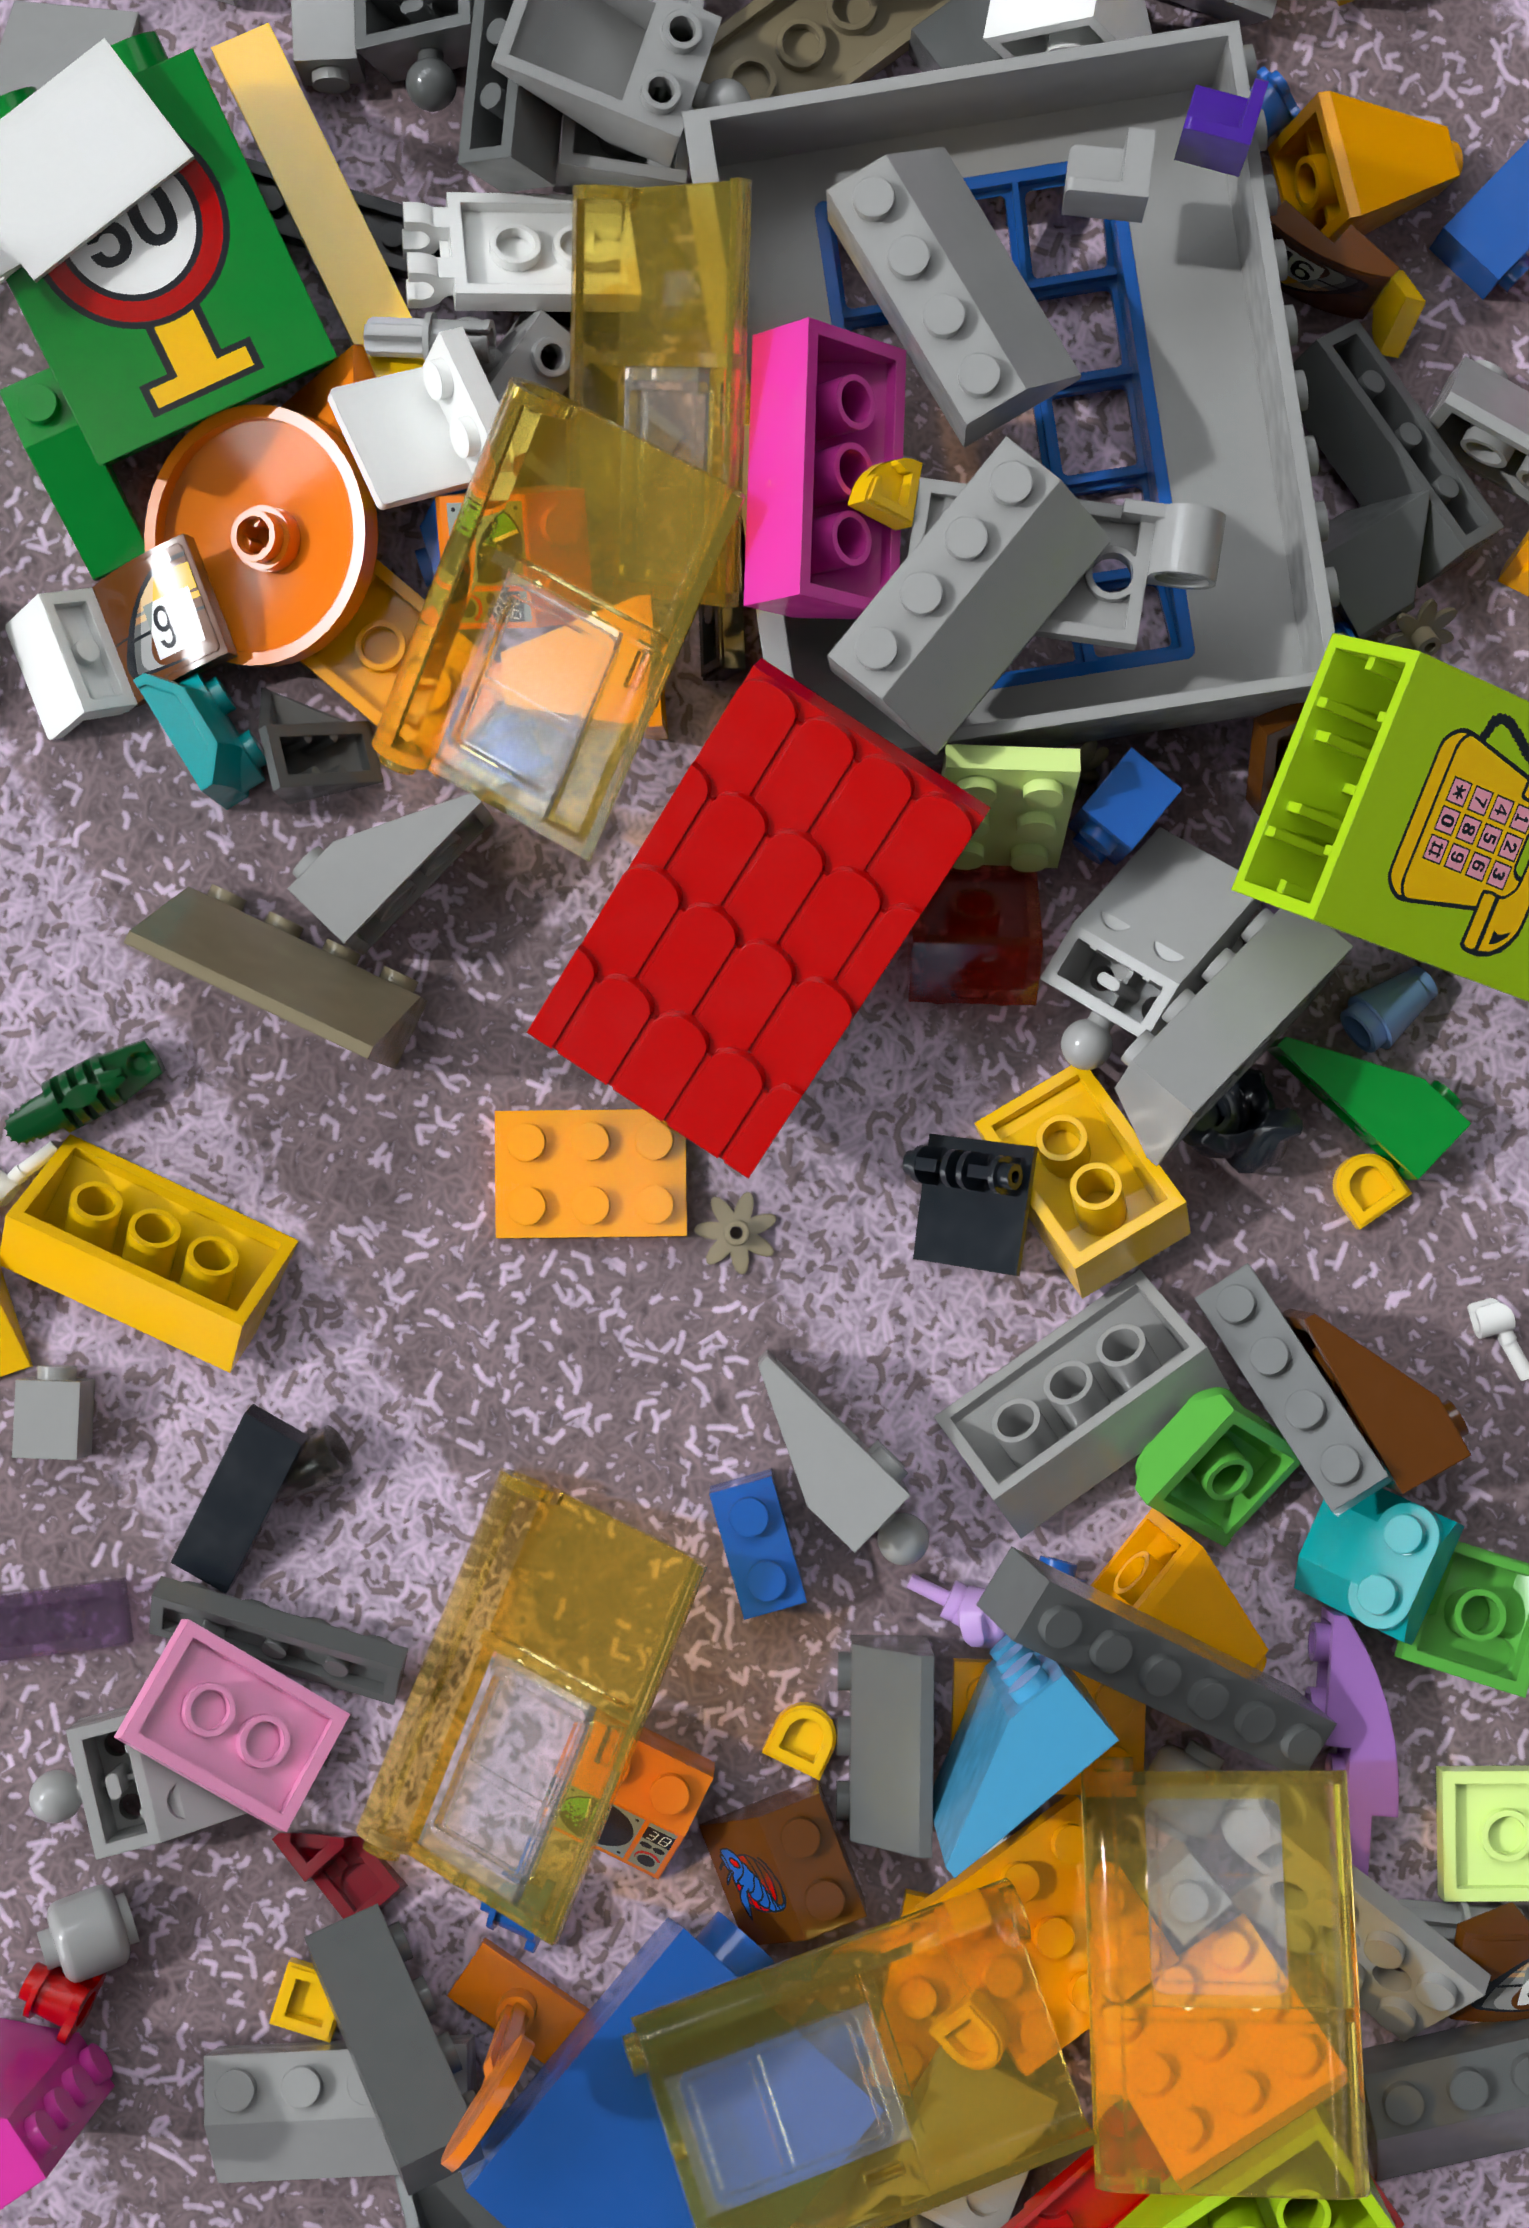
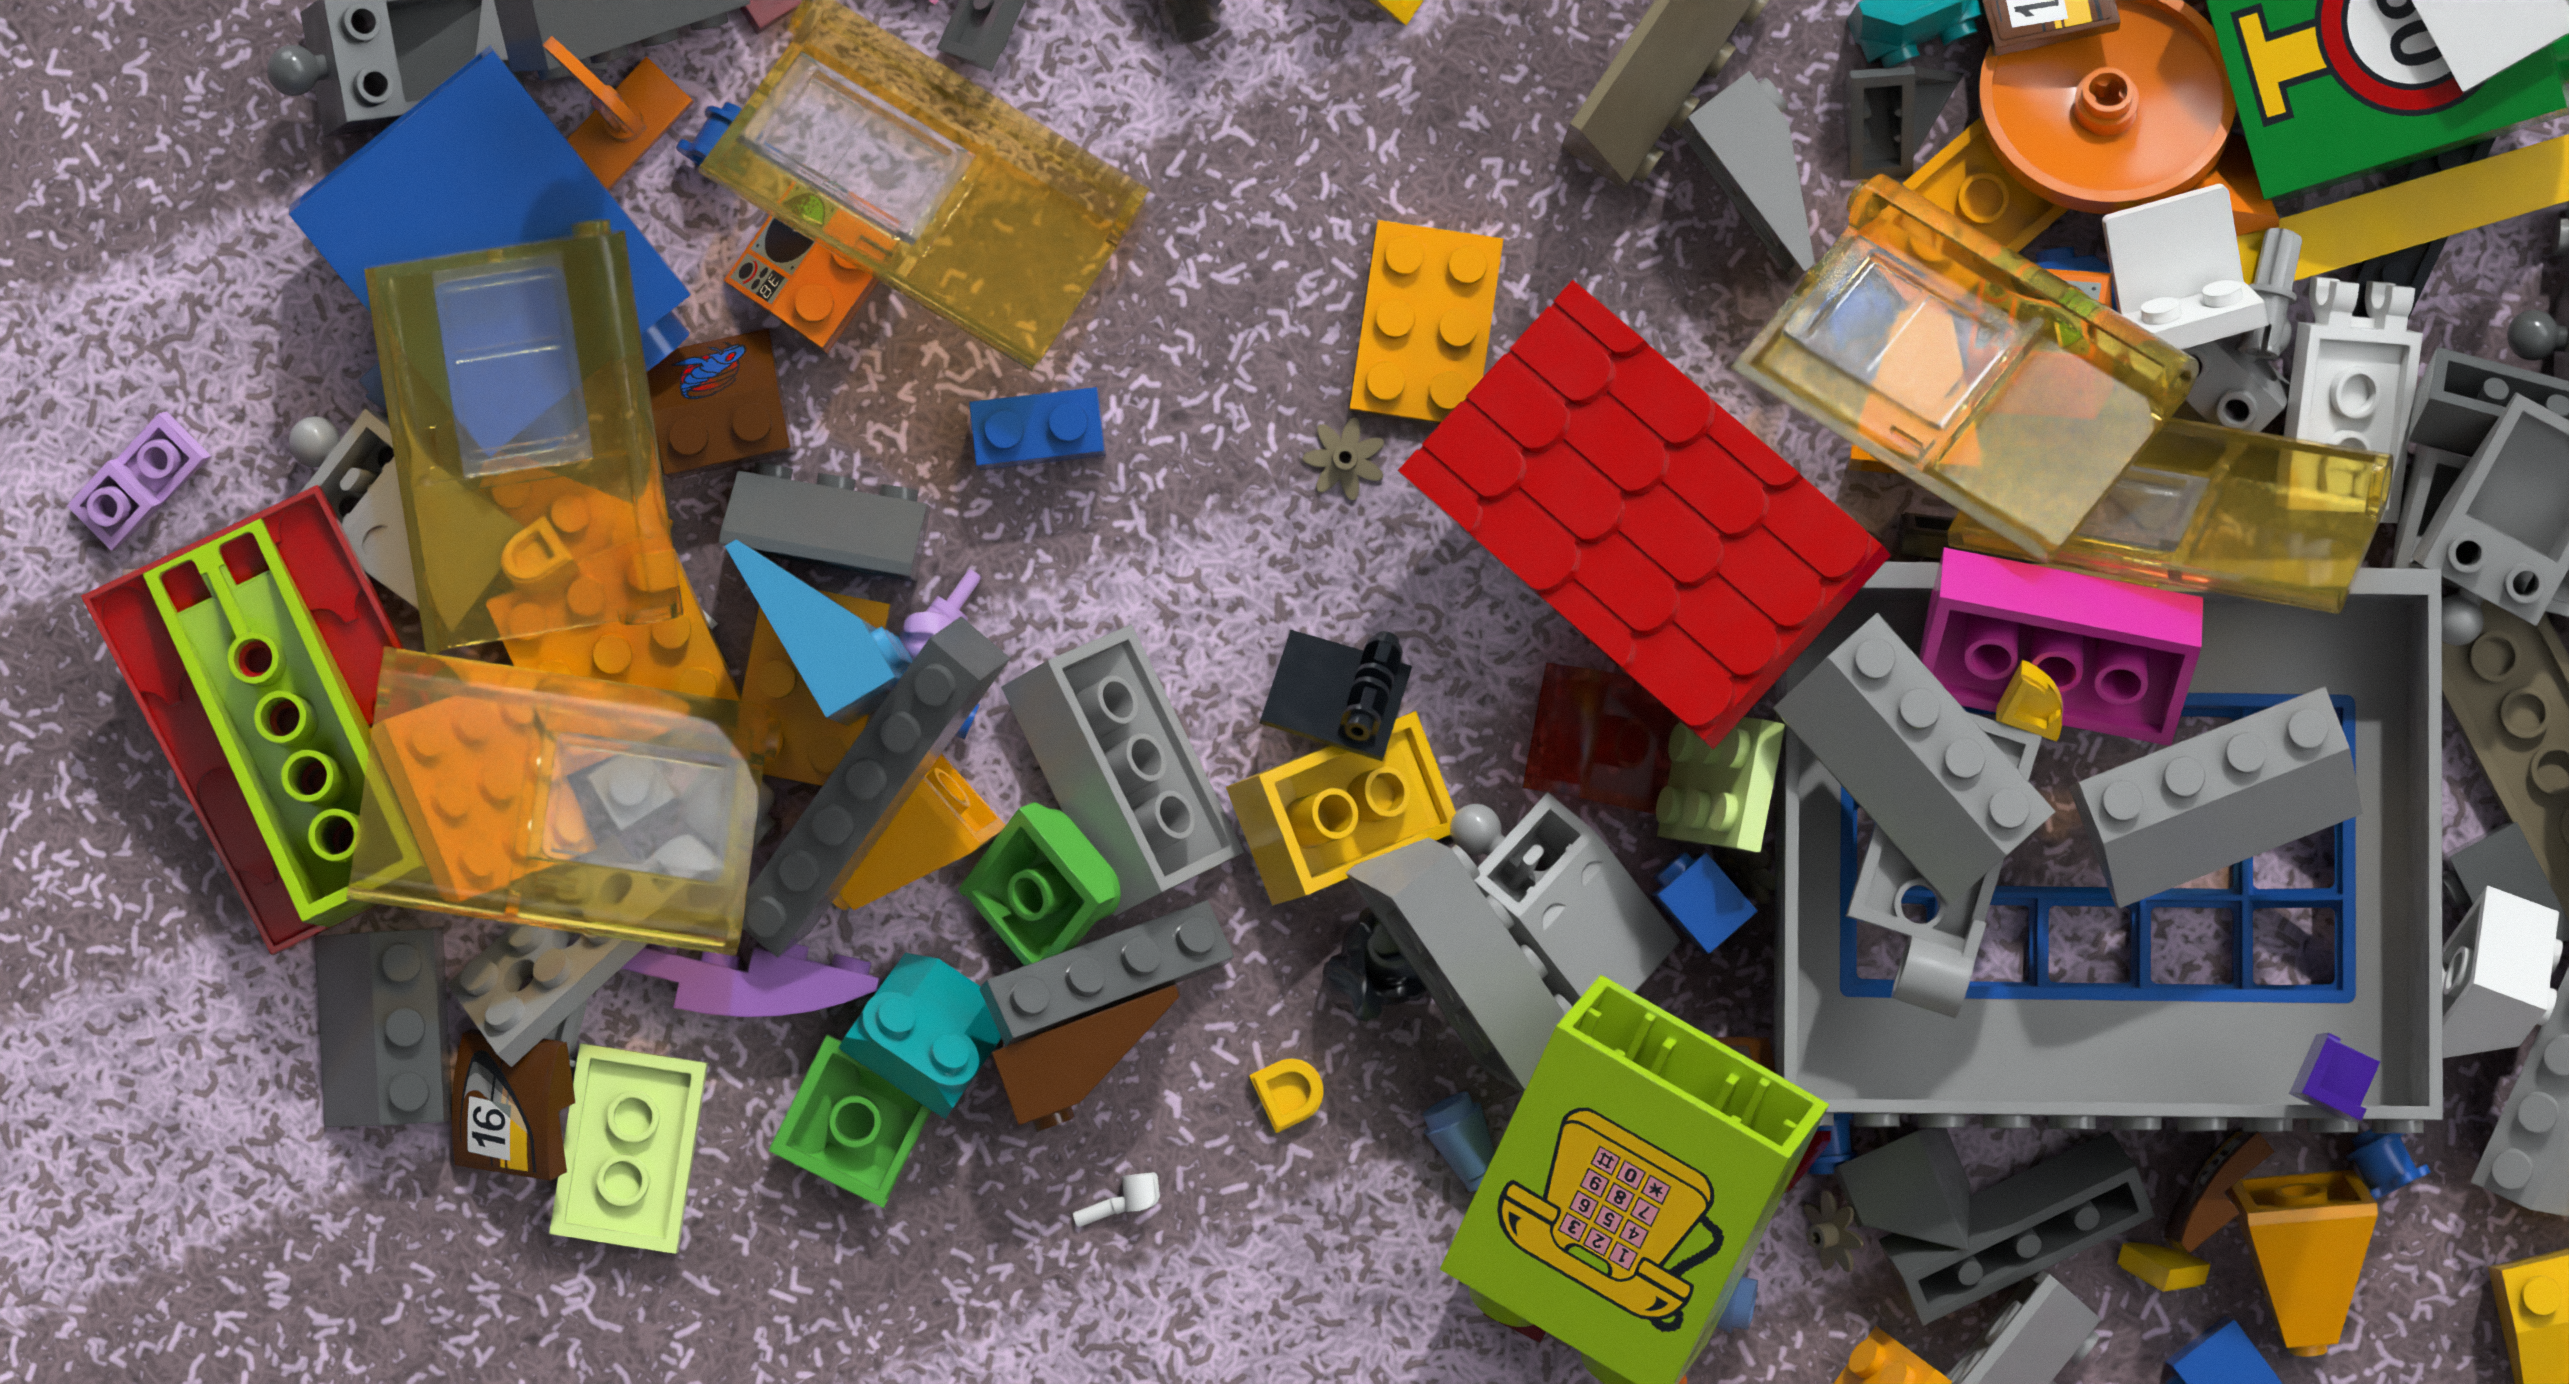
camera: 95 degrees right, 0 degrees up
(802, 1738) = (837, 443): yellow tile -> none
(839, 1476) = (1097, 516): light grey slope -> none
(1110, 180) = (2303, 964): light grey panel -> none
(1386, 1108) = (1363, 1121): green slope -> none

